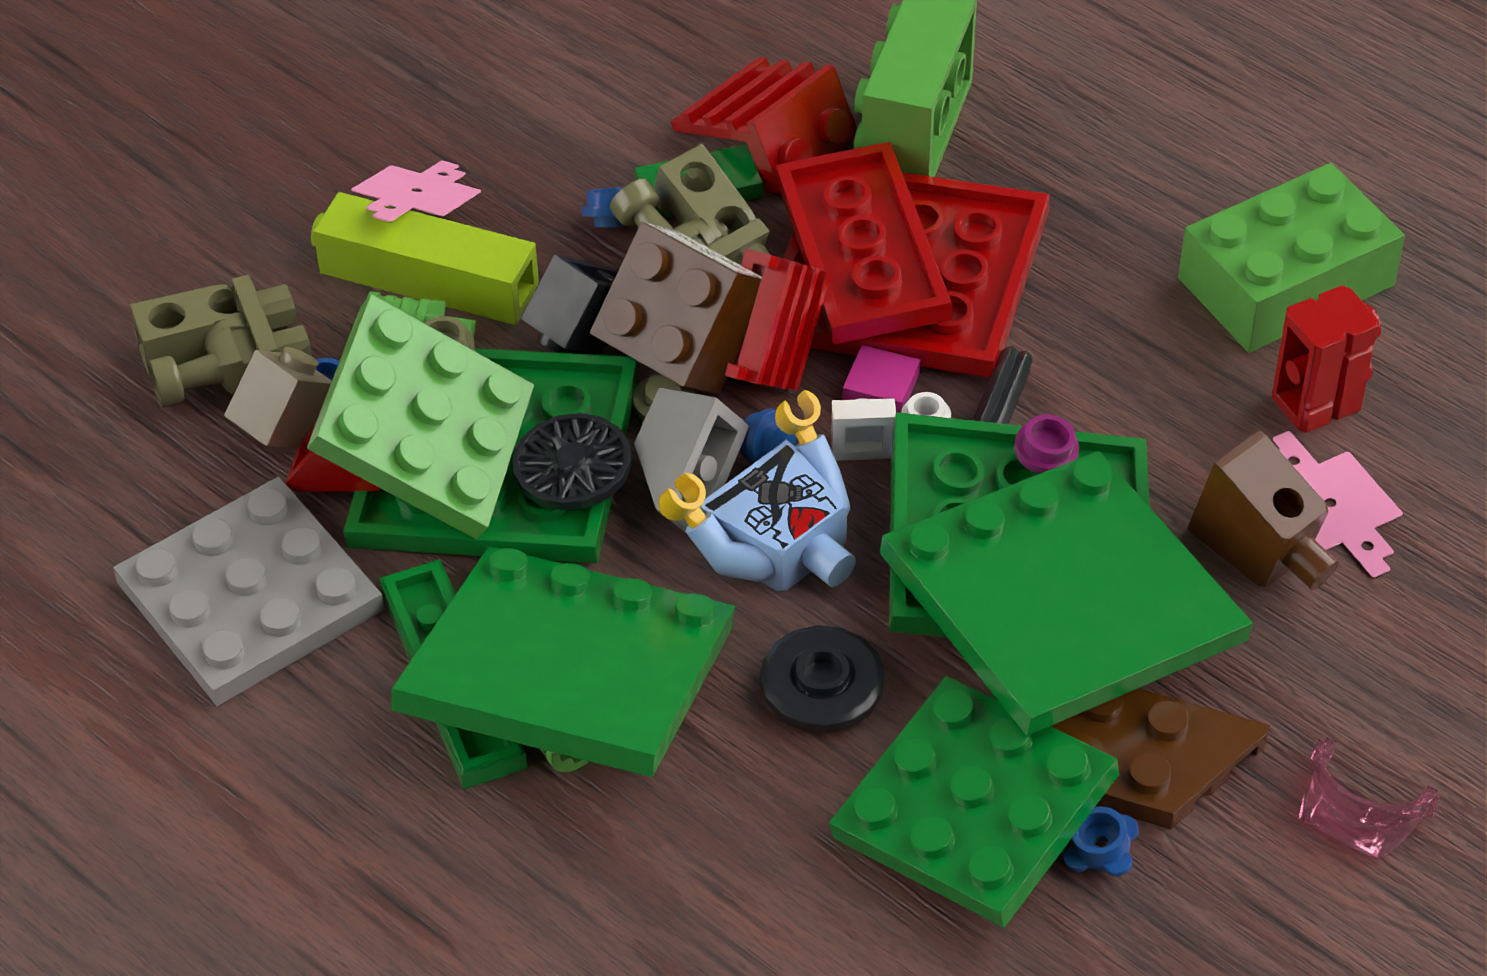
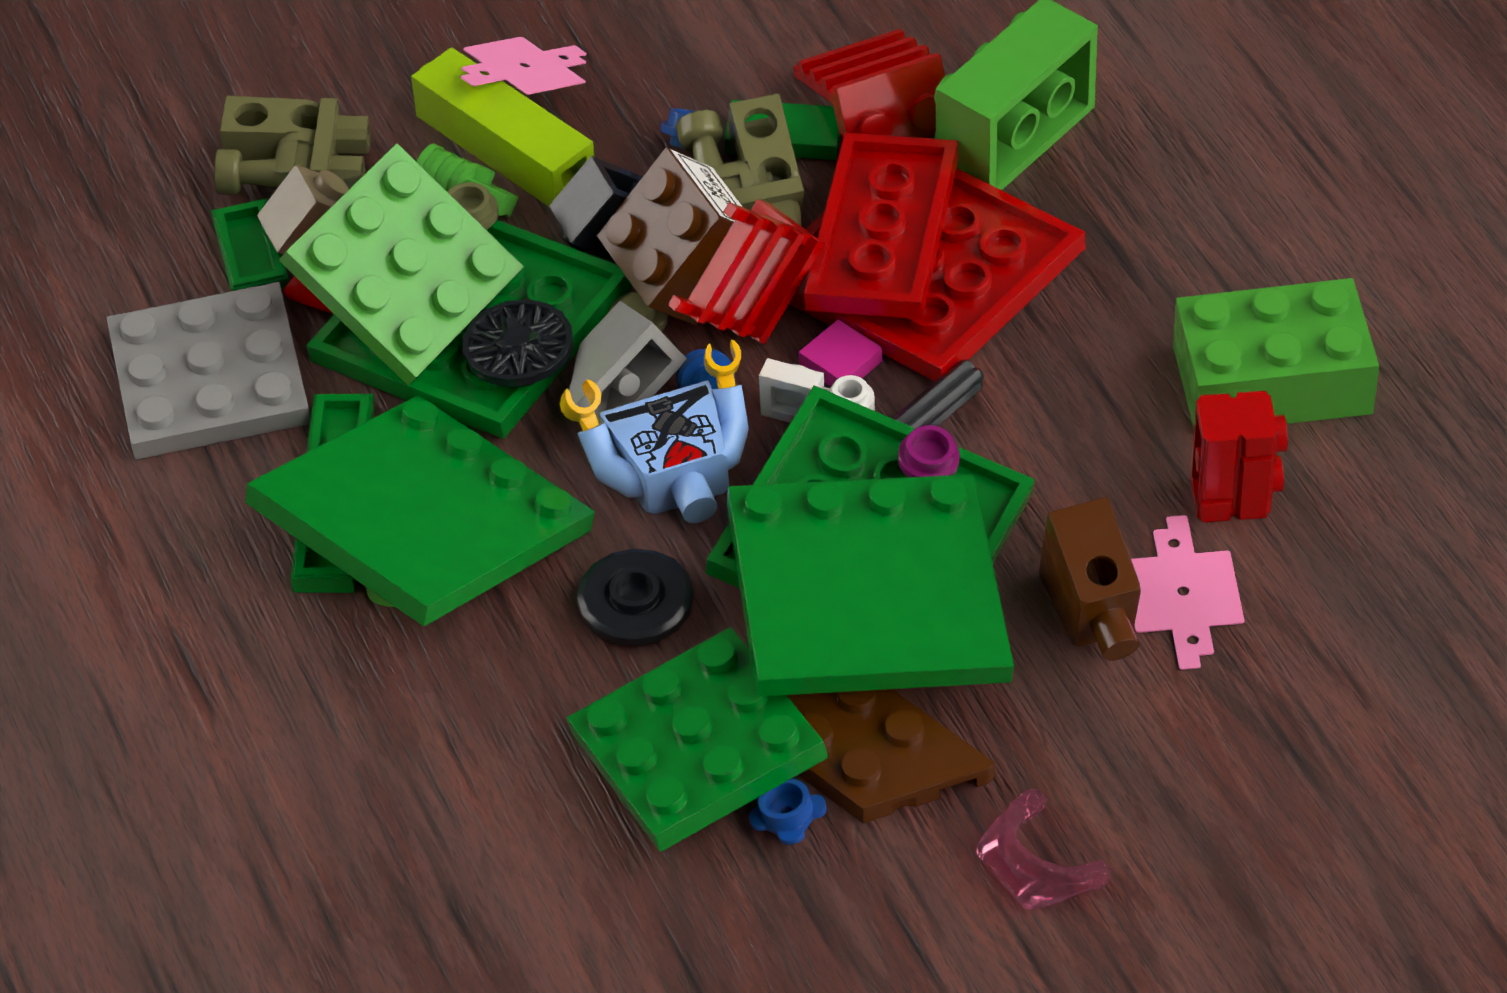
camera: 25 degrees right, 0 degrees up
(222, 451) = (246, 248): none -> green tile

